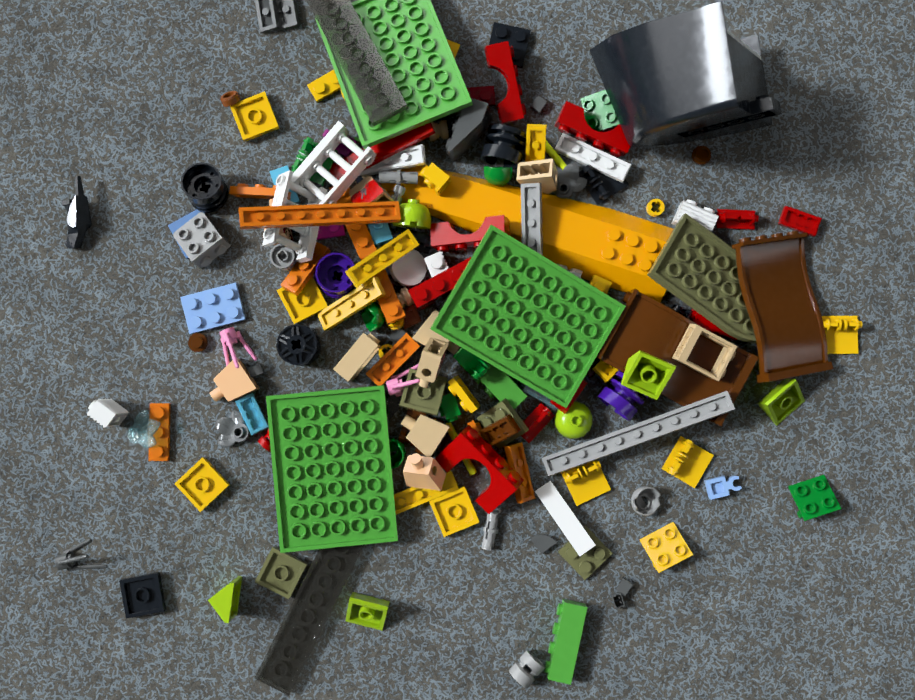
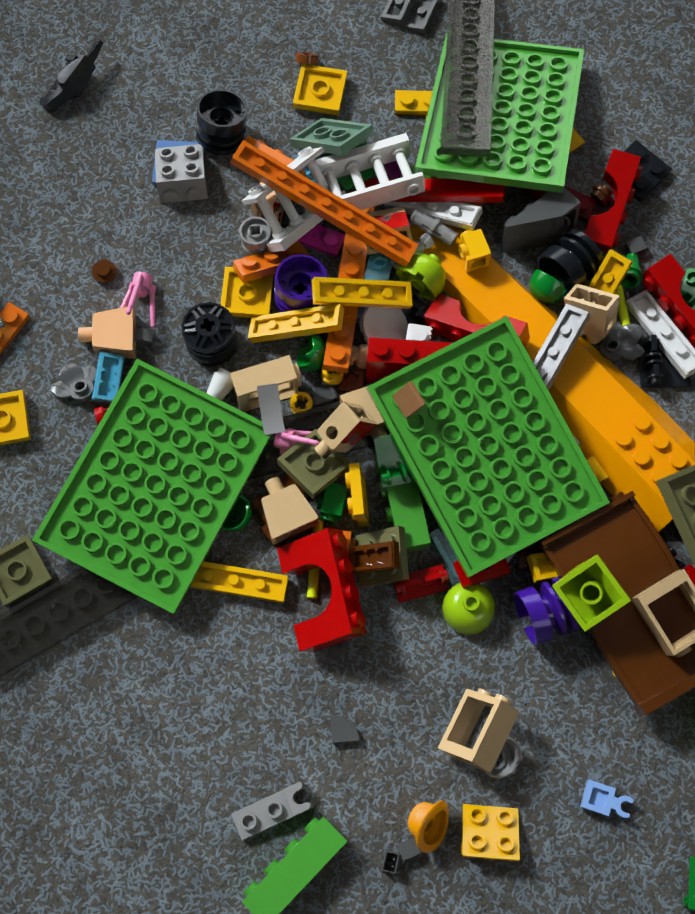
camera: 30 degrees right, 15 degrees down
(213, 308) = (145, 247): light blue plate -> none
(288, 152) = (333, 136): none -> sand green plate
(327, 374) = (220, 384): none -> white cone
(367, 611) = (81, 678): lime slope -> none
(374, 375) = (270, 409): none -> light grey sticker
(393, 360) = (309, 408): orange plate -> none
(423, 473) = (254, 552): light nougat torso -> none
(441, 130) = (507, 209): tan wheel -> none
(454, 511) = (261, 626): yellow plate -> none
(463, 323) = (409, 399): none -> medium nougat slope
(490, 530) = (289, 675): light grey pin -> none
(494, 79) = (602, 194): none -> reddish brown plate
(517, 460) = (360, 649): orange plate -> none
(522, 674) = (214, 876): light grey wheel -> none
(530, 615) = (269, 811): none -> light grey plate
(542, 118) = (634, 274): none -> green cone
(565, 518) = (387, 717): white tile -> none
(586, 482) = (438, 687): yellow hinge -> none
(589, 561) = (386, 775): olive plate -> none
(627, 566) = (429, 824): none -> light orange hat
(637, 494) = (491, 736): none -> tan window
(638, 433) = (540, 665): light grey plate -> none
(687, 461) = (579, 744): yellow hinge -> none

